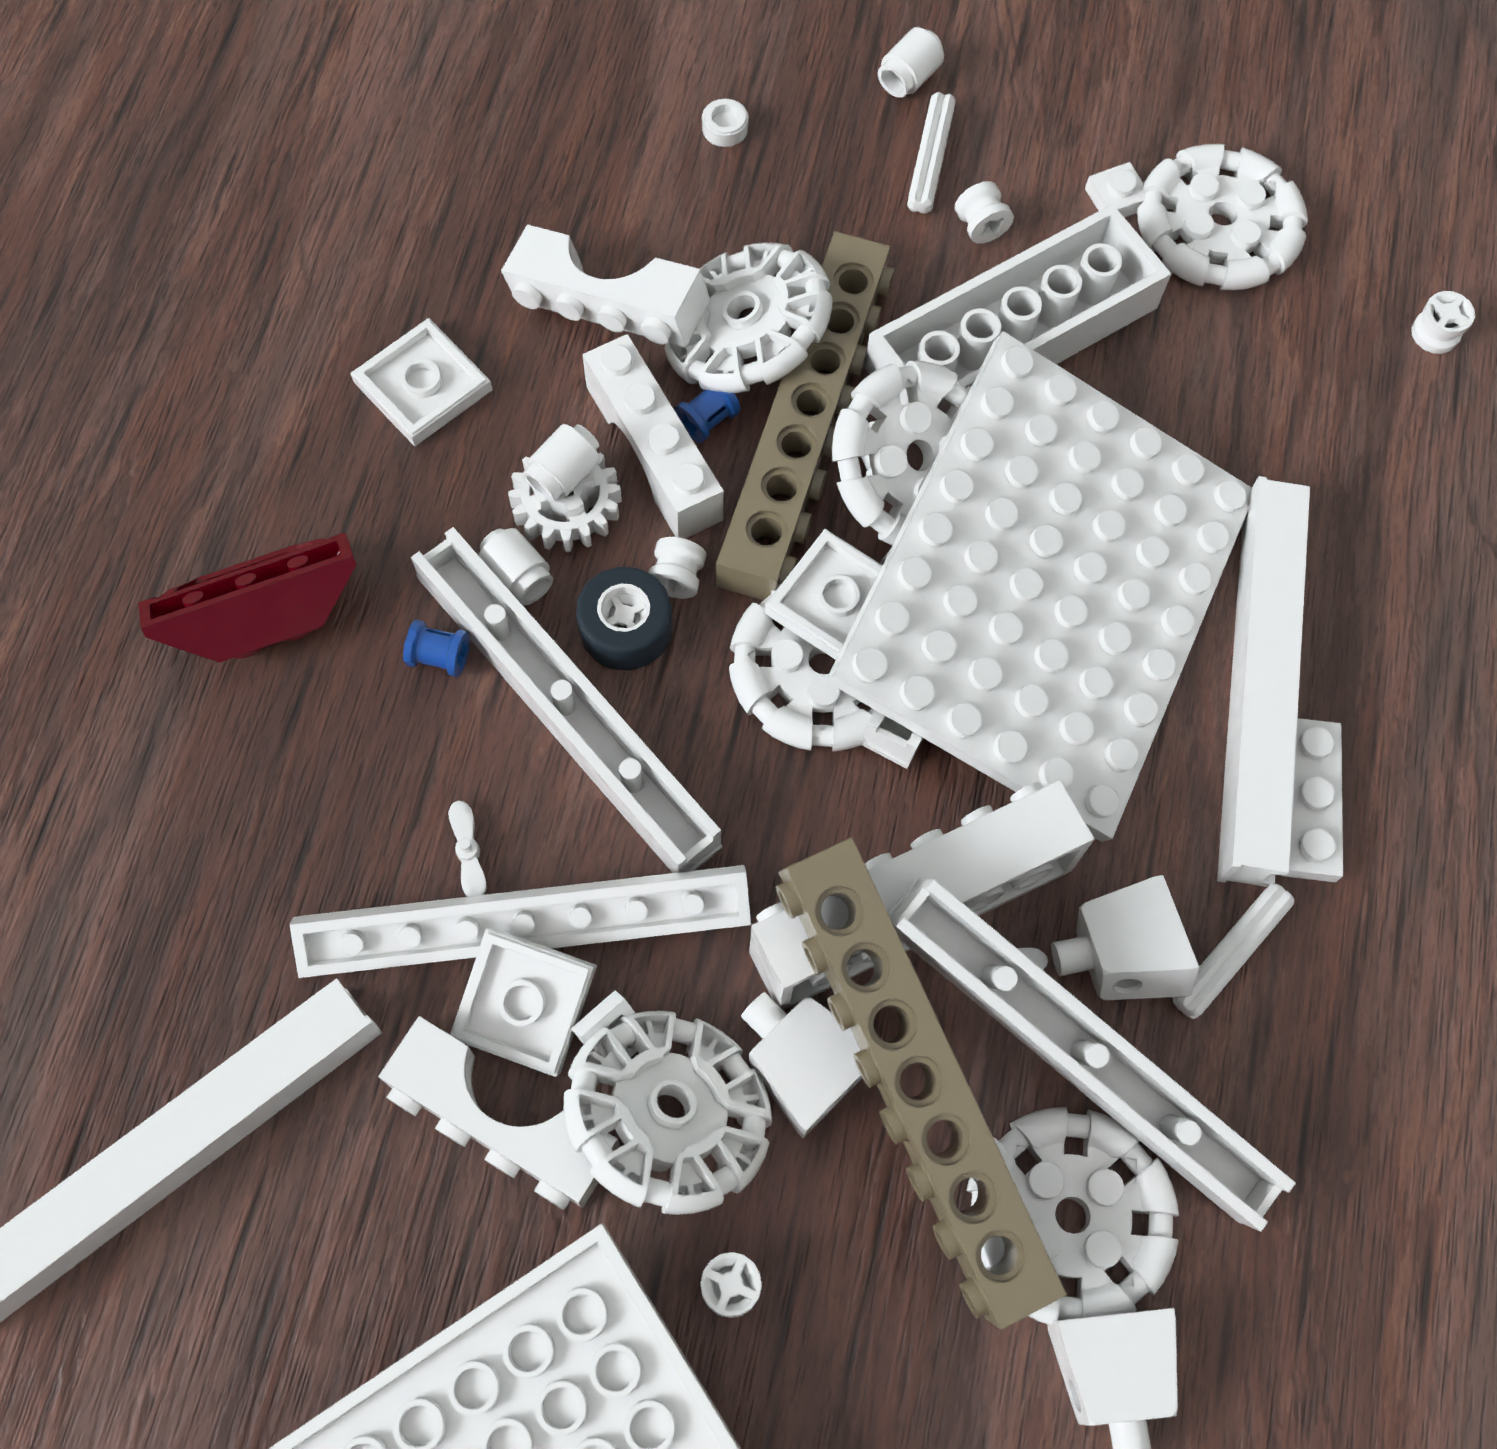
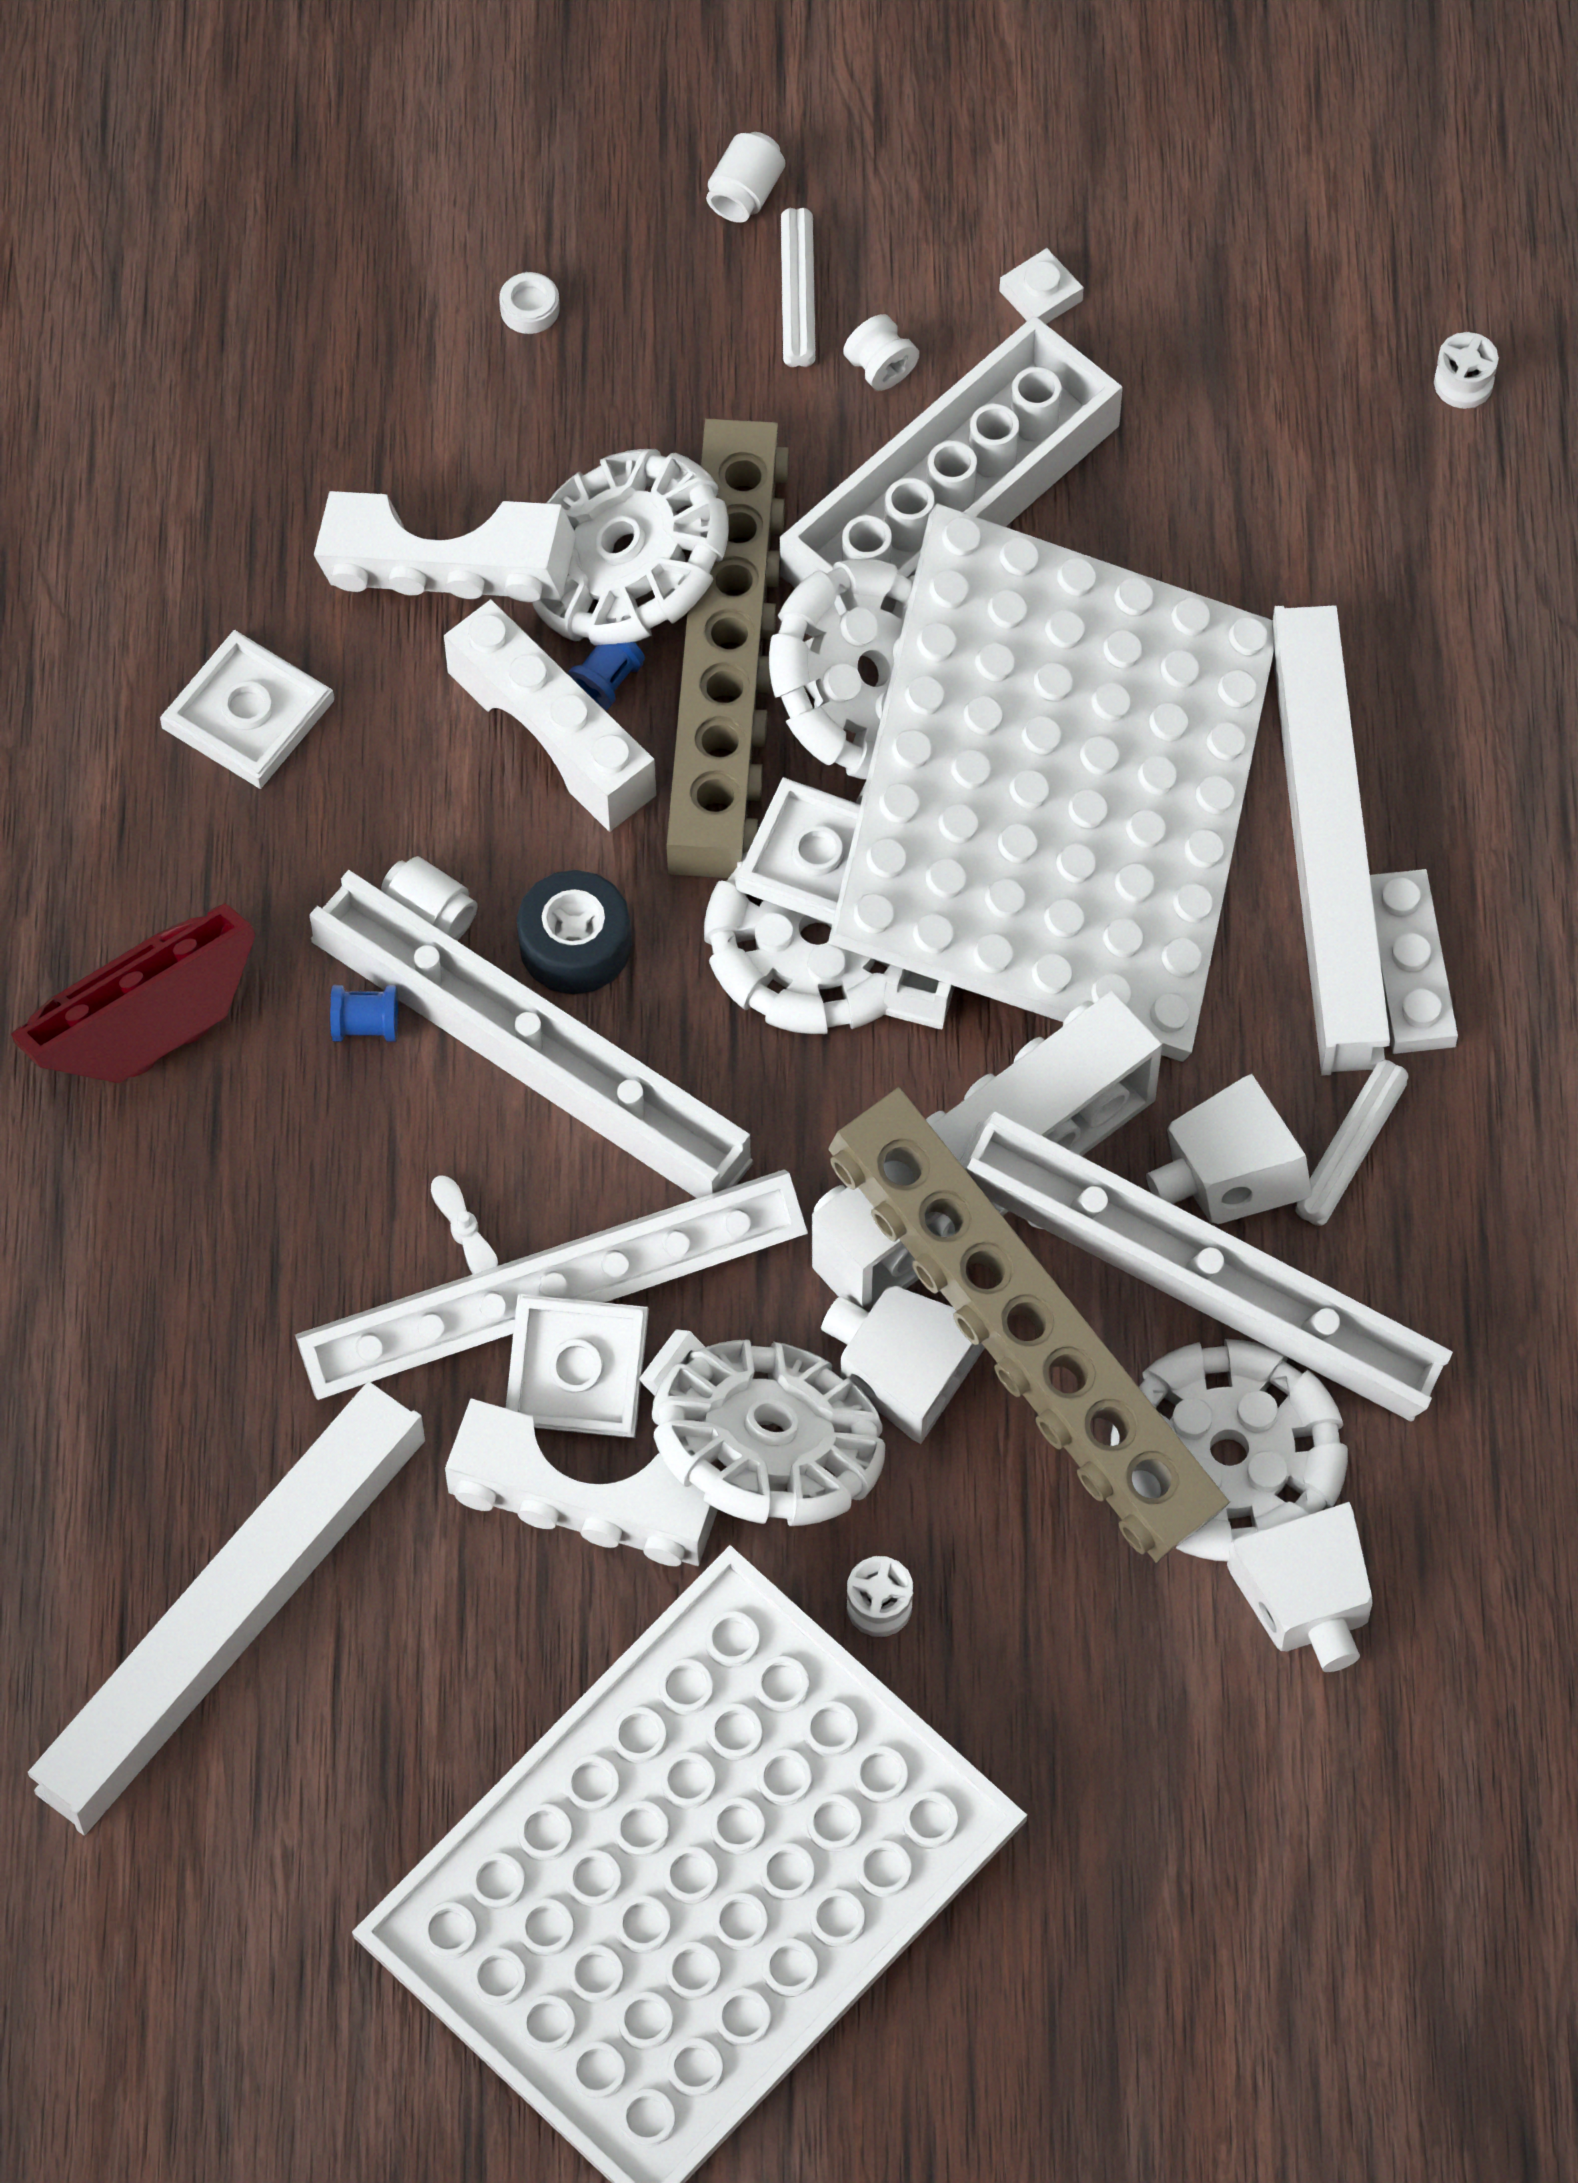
camera: 10 degrees left, 5 degrees down
(562, 462) = (459, 766): white brick -> none
(567, 516) = (466, 798): white gear -> none
(678, 566) = (620, 857): white wheel -> none
(1235, 197) = (1186, 265): white plate -> none

